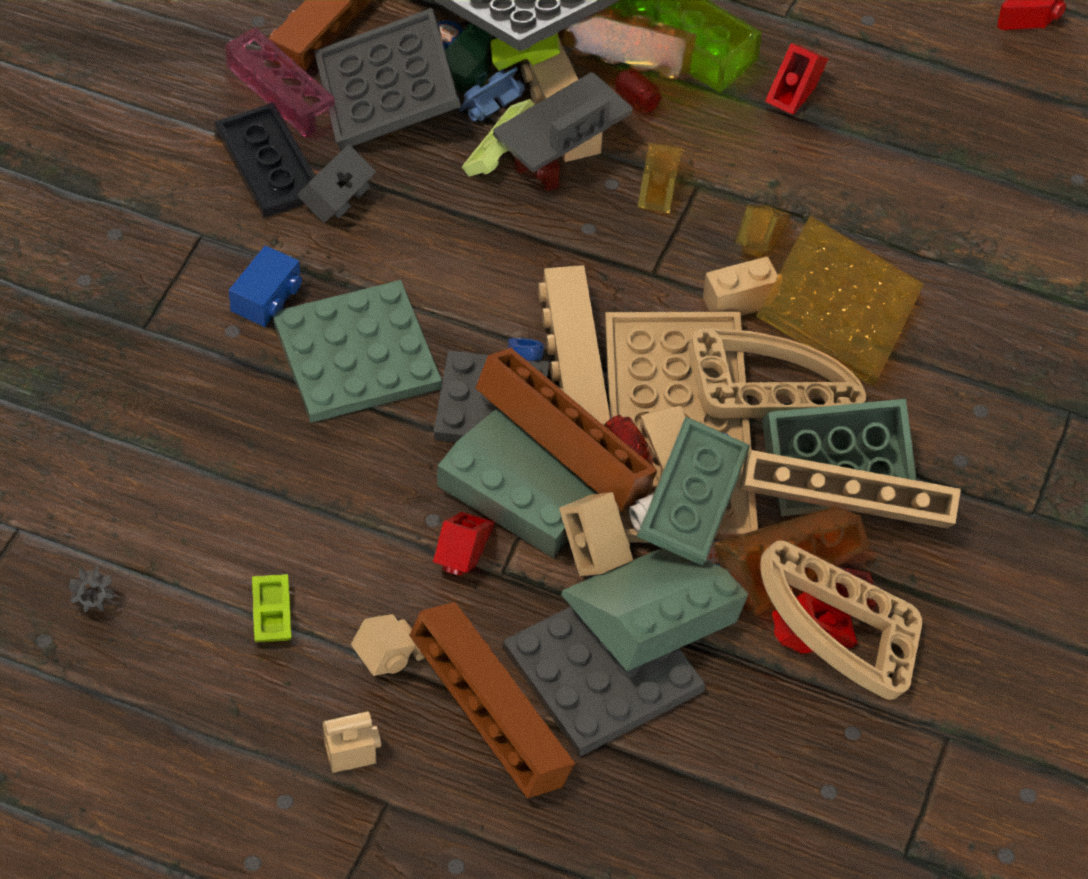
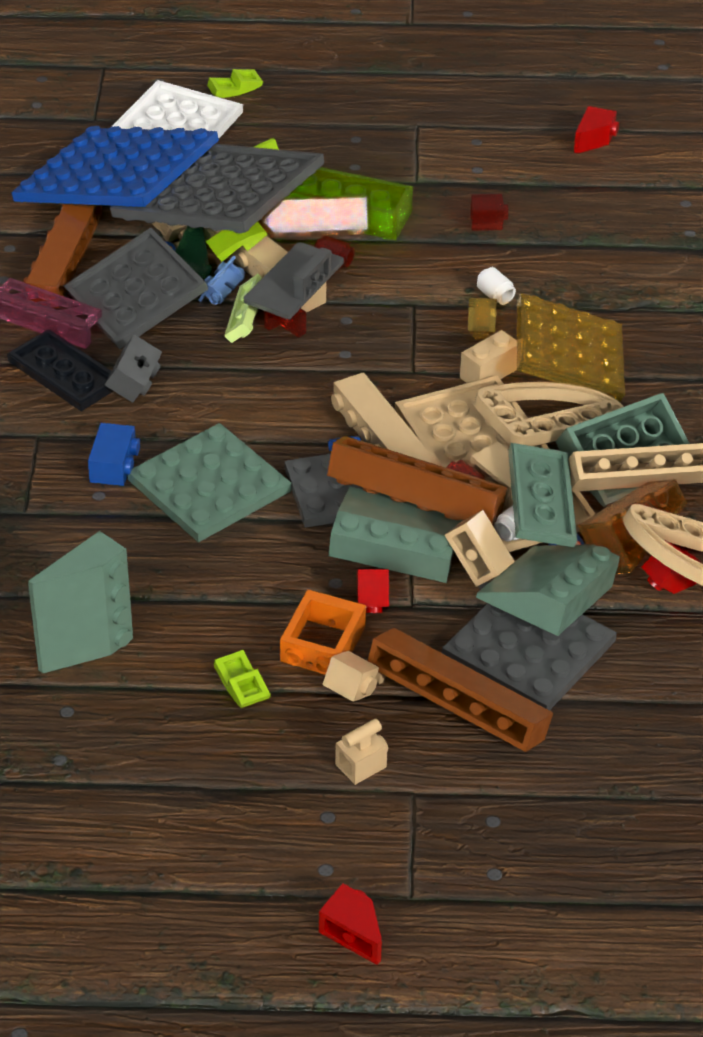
camera: 20 degrees left, 10 degrees down
(95, 580) = (94, 705): dark grey gear -> none
(123, 475) = (82, 605): none -> sand green slope
(400, 555) = (326, 611): none -> orange window
(660, 176) = (385, 301): clear yellow slope -> none
(796, 78) = (450, 214): red slope -> none
(802, 190) = (496, 285): none -> white brick
(843, 86) = (488, 212): none -> clear red brick

